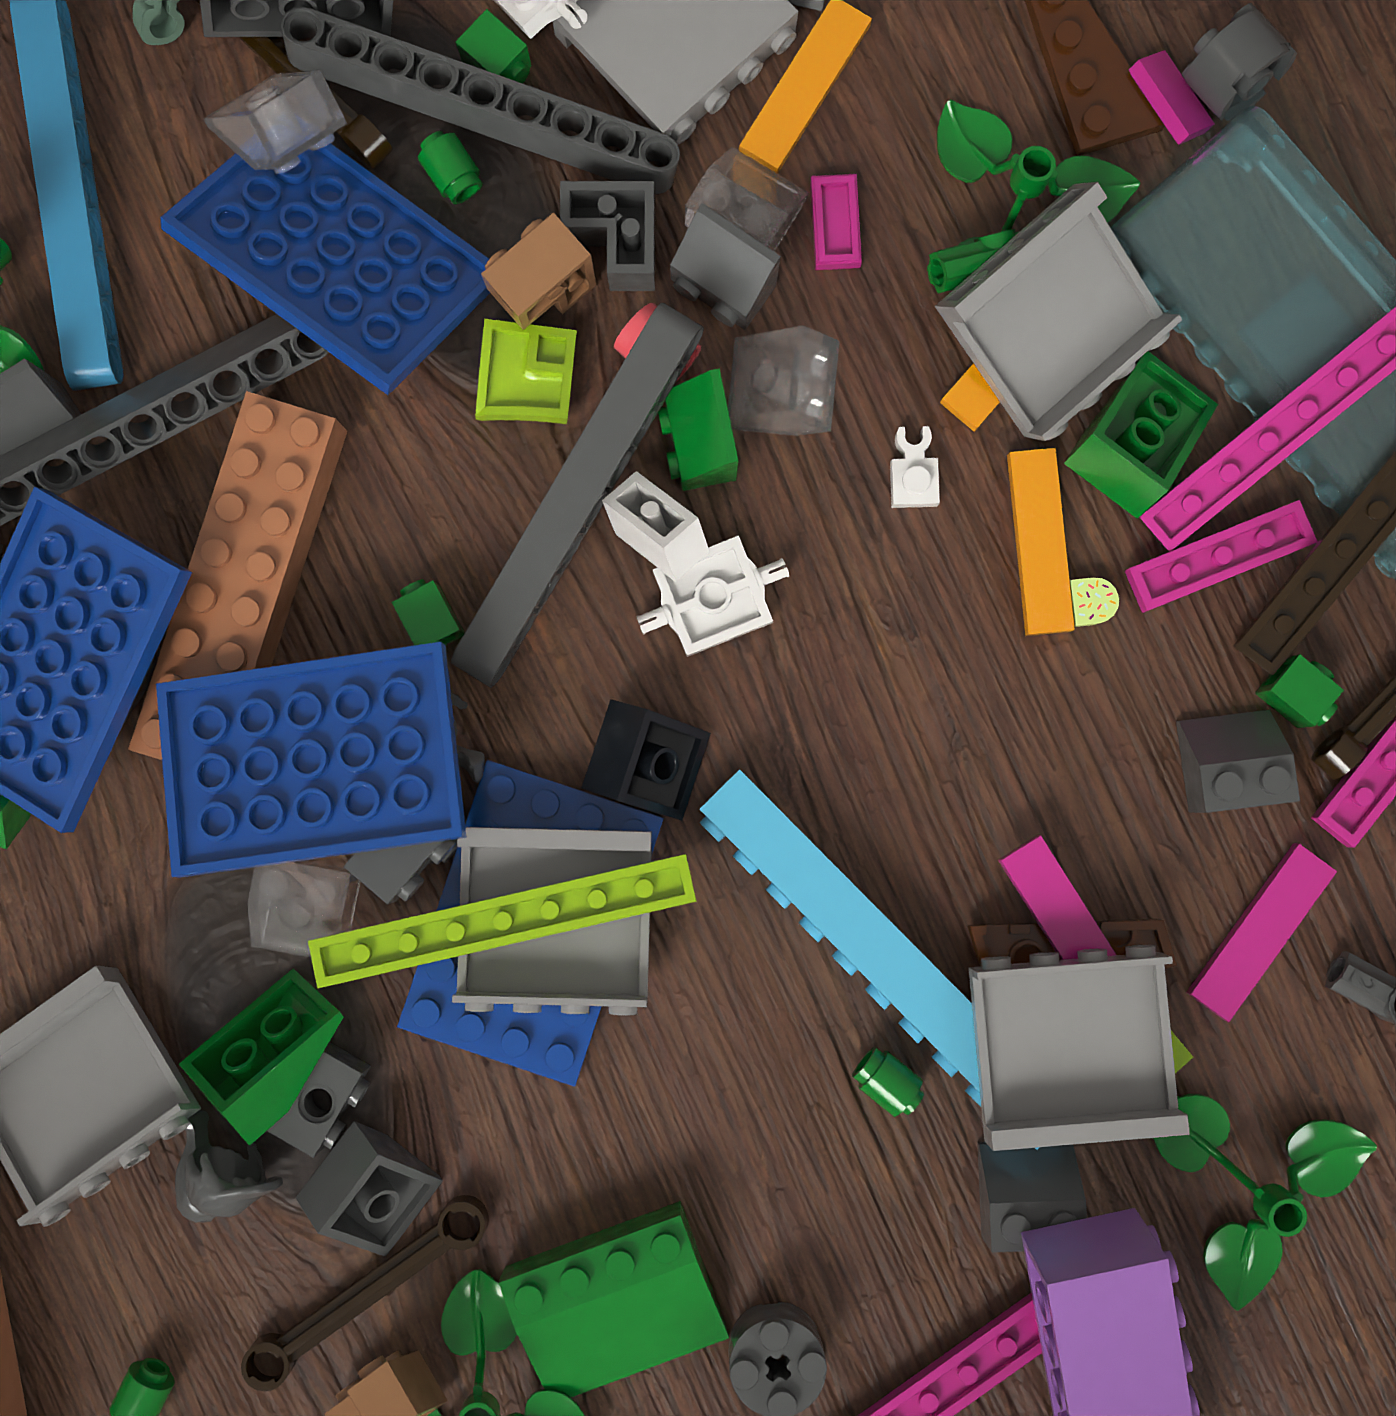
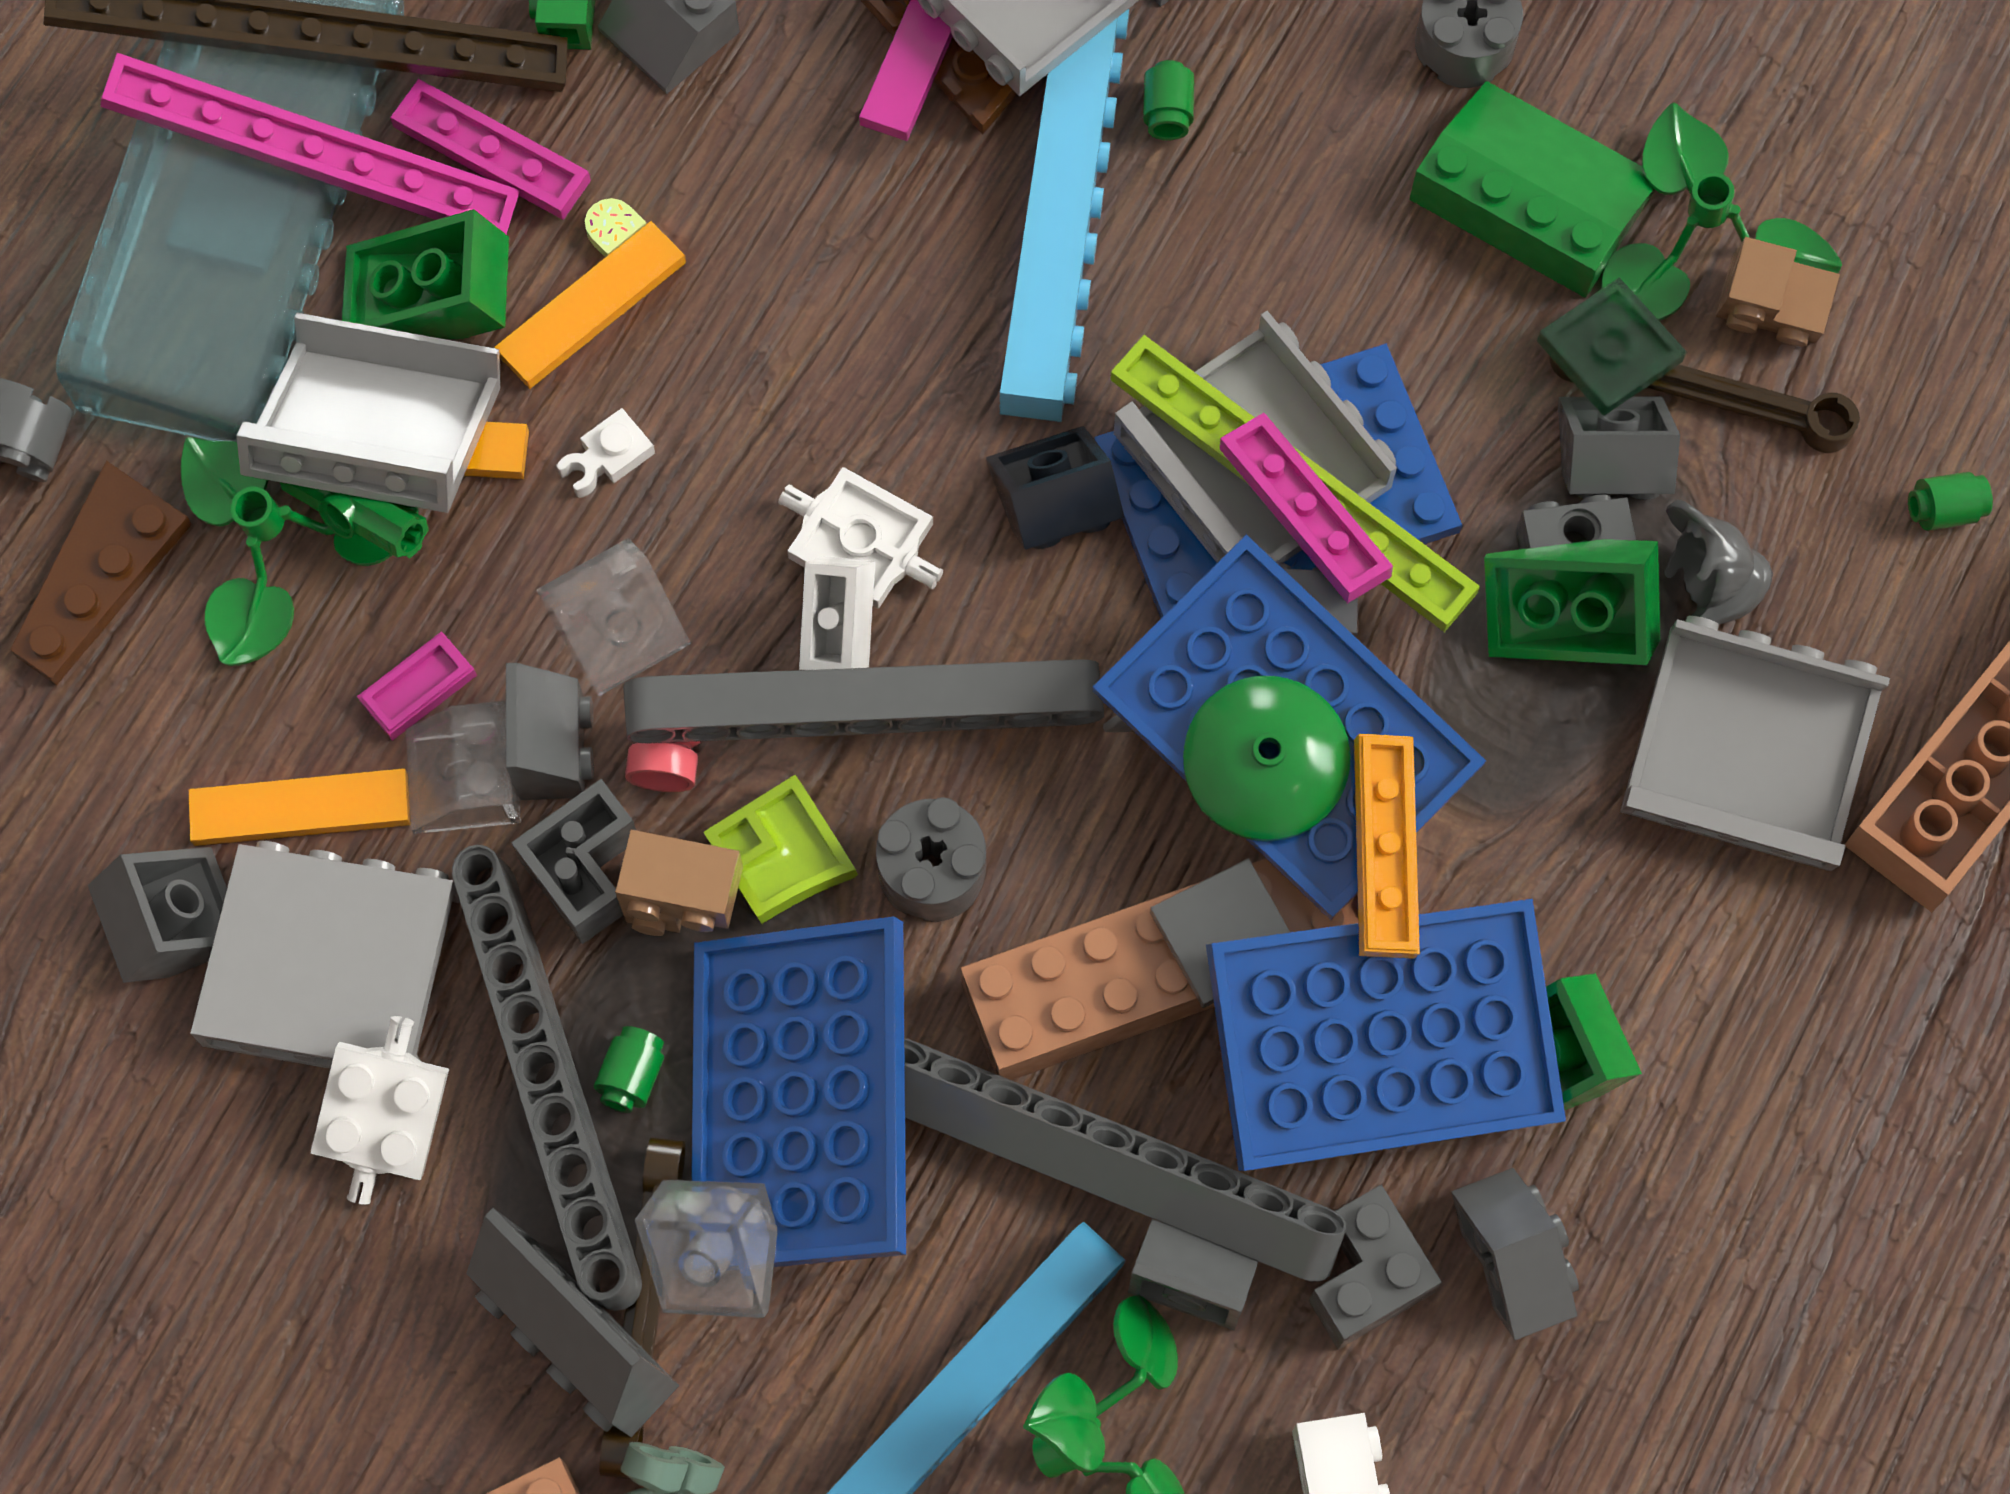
camera: 125 degrees left, 15 degrees down
(161, 752) = (1386, 846): none -> light orange tile
(217, 608) = (1215, 911): none -> dark grey tile
(299, 904) = (1436, 670): clear slope -> none
(322, 726) = (1261, 795): none -> green dish
(422, 442) = (939, 830): none -> dark grey brick
(427, 614) = (1078, 765): green brick -> none
(434, 1245) = (1611, 346): none -> clear green plate
(460, 903) = (1306, 507): none -> dark pink plate
(494, 48) = (484, 1109): green brick -> none
(700, 432) = (719, 632): green slope -> none
(1171, 97) = (77, 472): dark pink tile -> none

